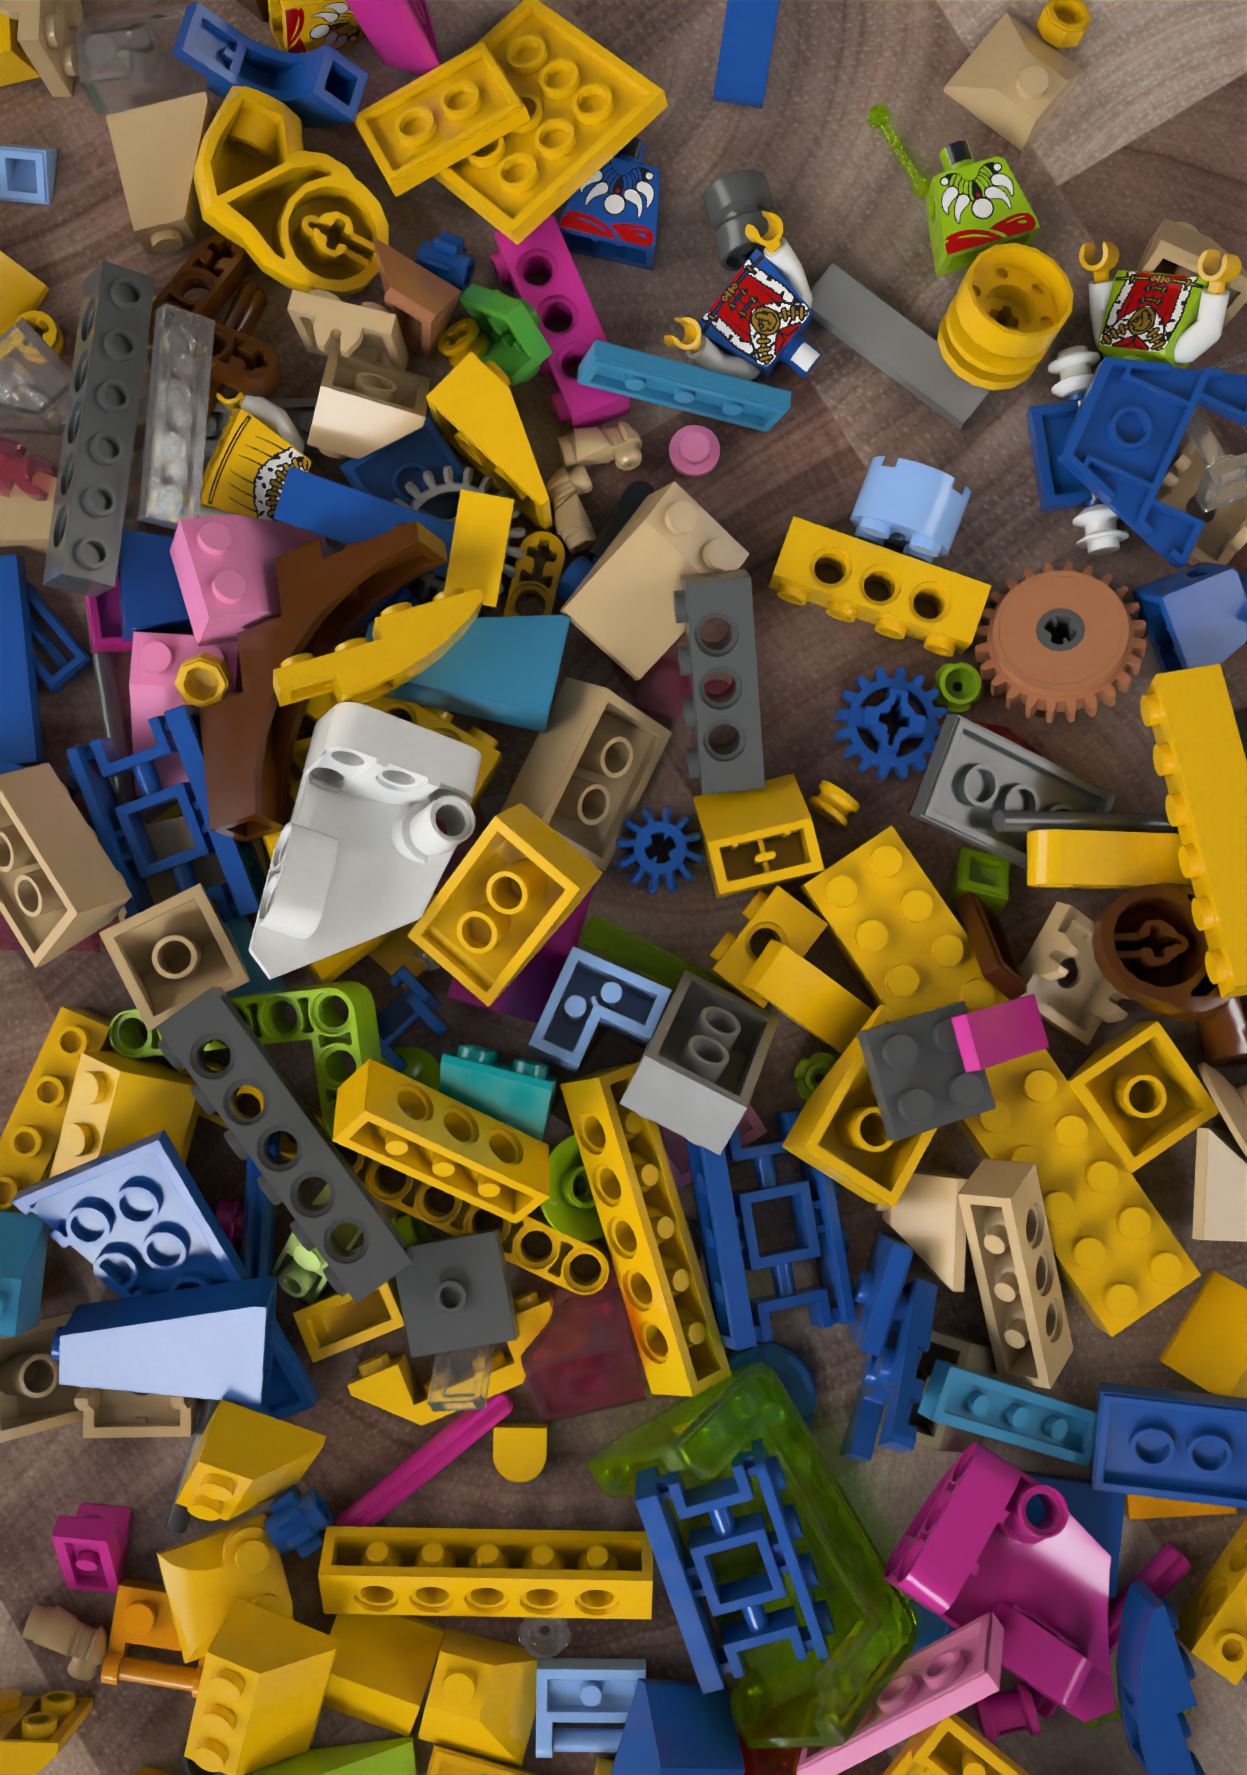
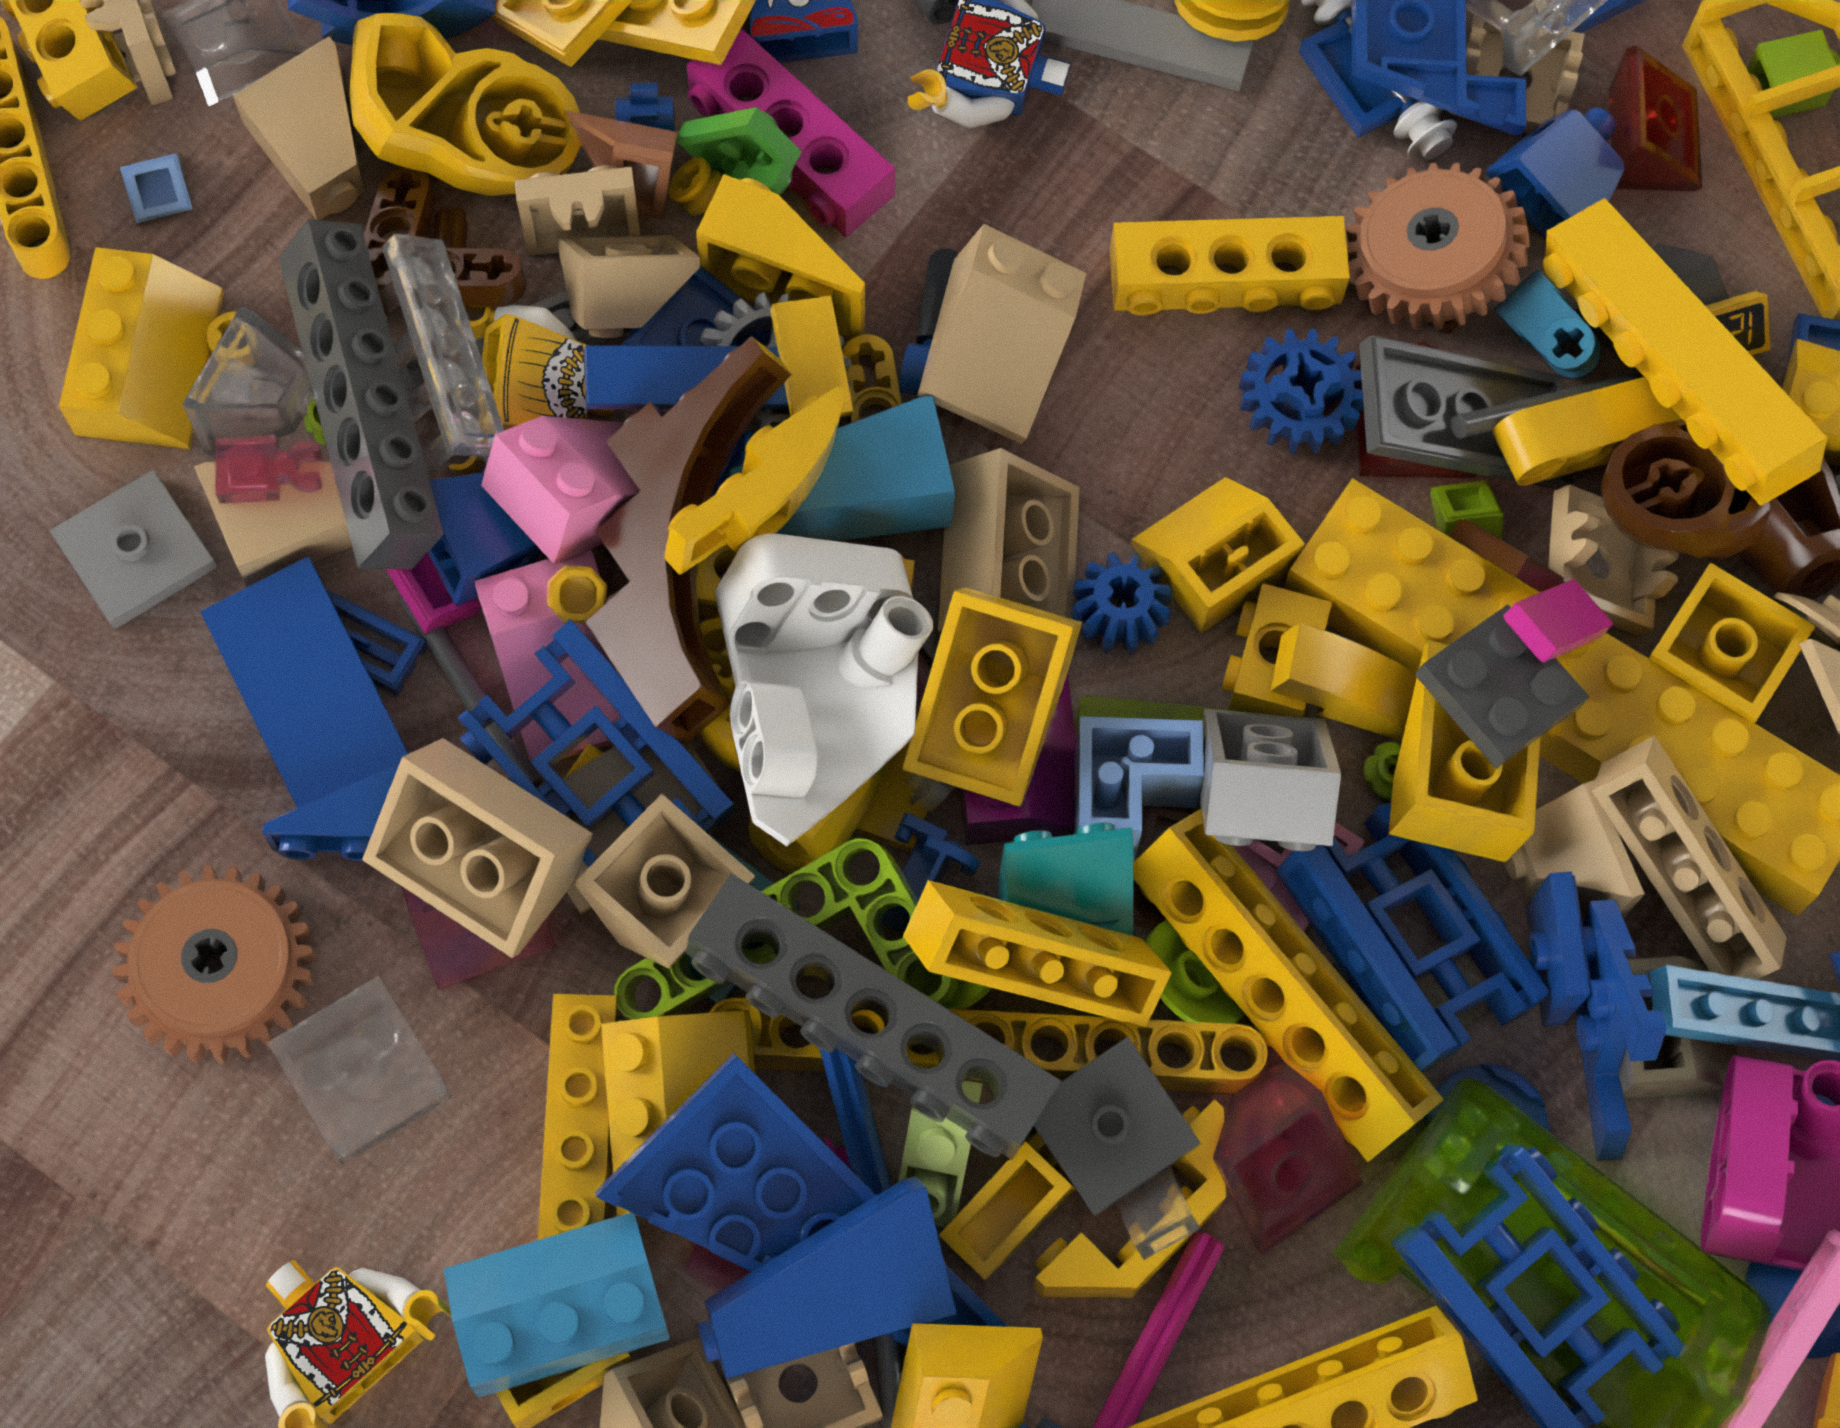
camera: 25 degrees left, 15 degrees down
(520, 1450) = (1251, 1290): yellow tile -> none
(569, 516) = (883, 312): tan arm -> none
(600, 446) = (880, 234): tan arm -> none
(664, 688) = (1062, 443): clear pink plate -> none
(682, 386) = (947, 139): dark azure tile -> none
(694, 451) = (979, 203): bright pink plate -> none
(739, 762) = (1120, 367): dark grey brick -> none
(833, 804) = (1283, 488): yellow bush -> none
(909, 508) = (1227, 171): light blue brick -> none
(968, 678) = (1356, 318): lime plate -> none
(1123, 739) = (1545, 320): none -> dark azure piece

